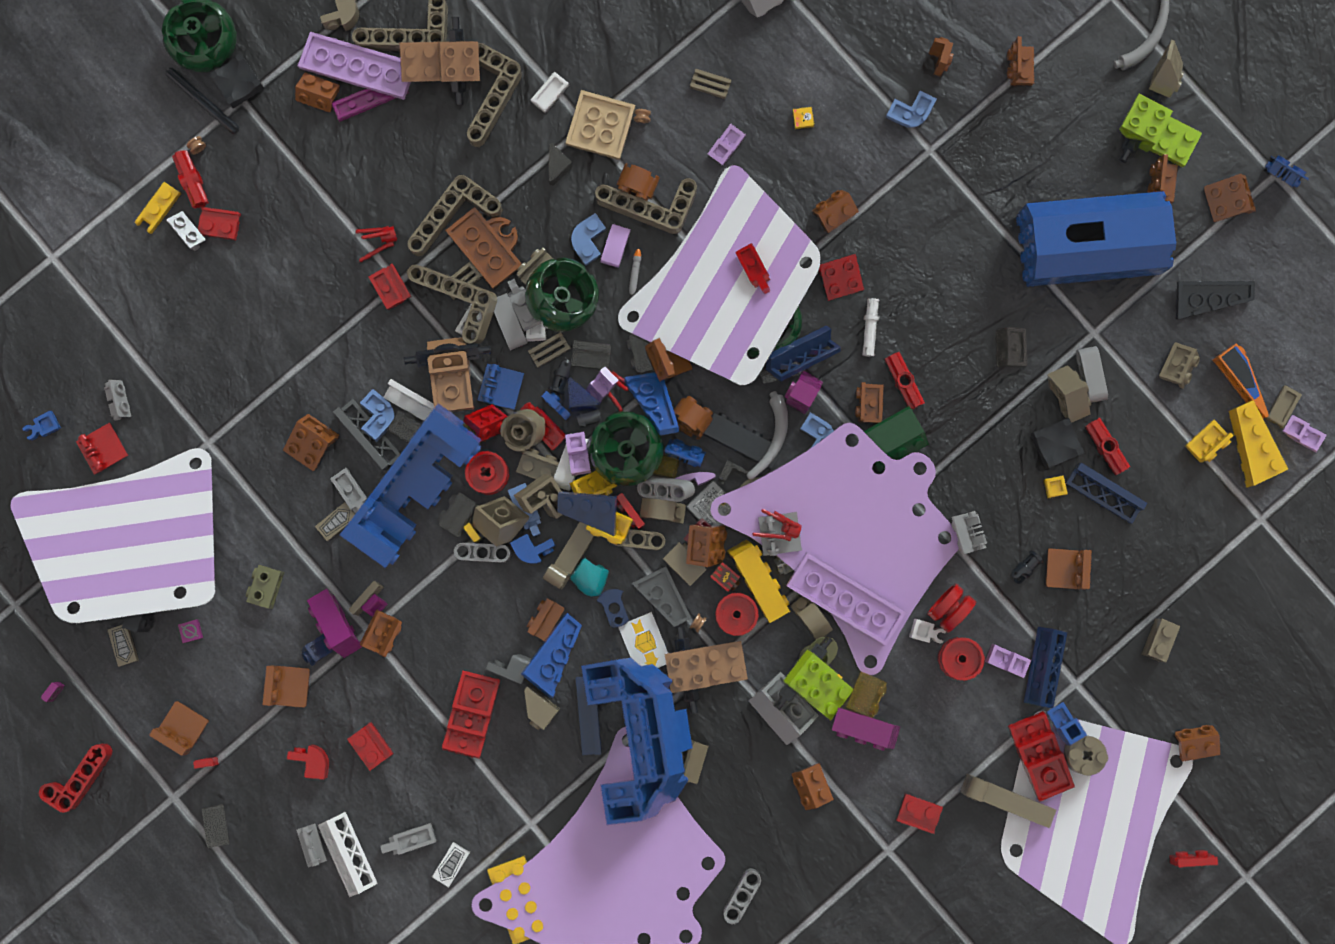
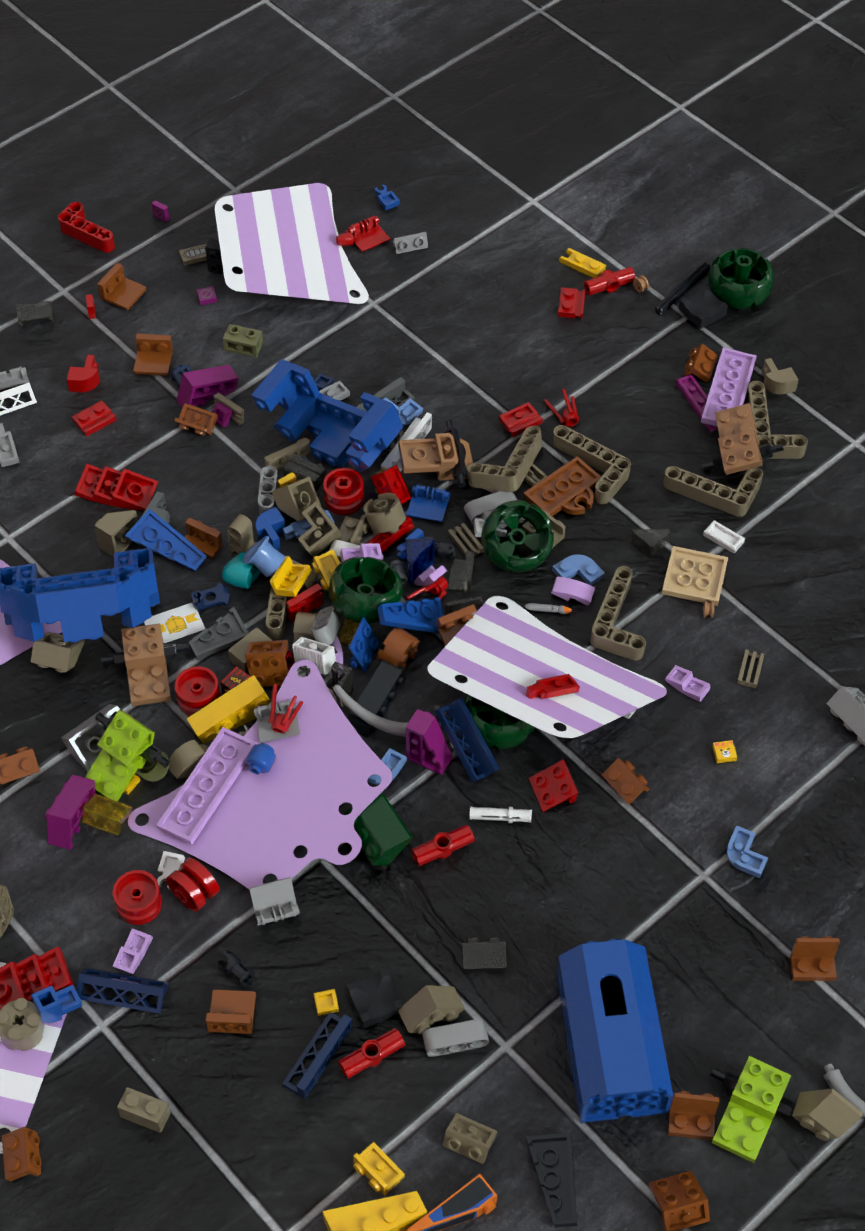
camera: 90 degrees right, 30 degrees down
(111, 474) = (345, 239): none -> red hose
(186, 230) = (561, 278): hinge -> none
(309, 441) = (377, 365): dark orange bracket -> none
(328, 498) = (323, 381): none -> dark blue tile
(433, 532) = (281, 457): none -> dark tan hinge
(587, 552) = (264, 557): none -> medium blue piece
(590, 509) = (304, 559): dark blue wing -> none
(637, 181) = (637, 601): dark orange brick -> none
(698, 622) = (191, 661): medium nougat bush -> none
(702, 499) = (317, 652): none -> white brick
(826, 547) = (260, 758): none -> blue head
(870, 403) = (418, 811): dark orange bracket -> none
(941, 48) = (808, 874): dark orange bracket -> none

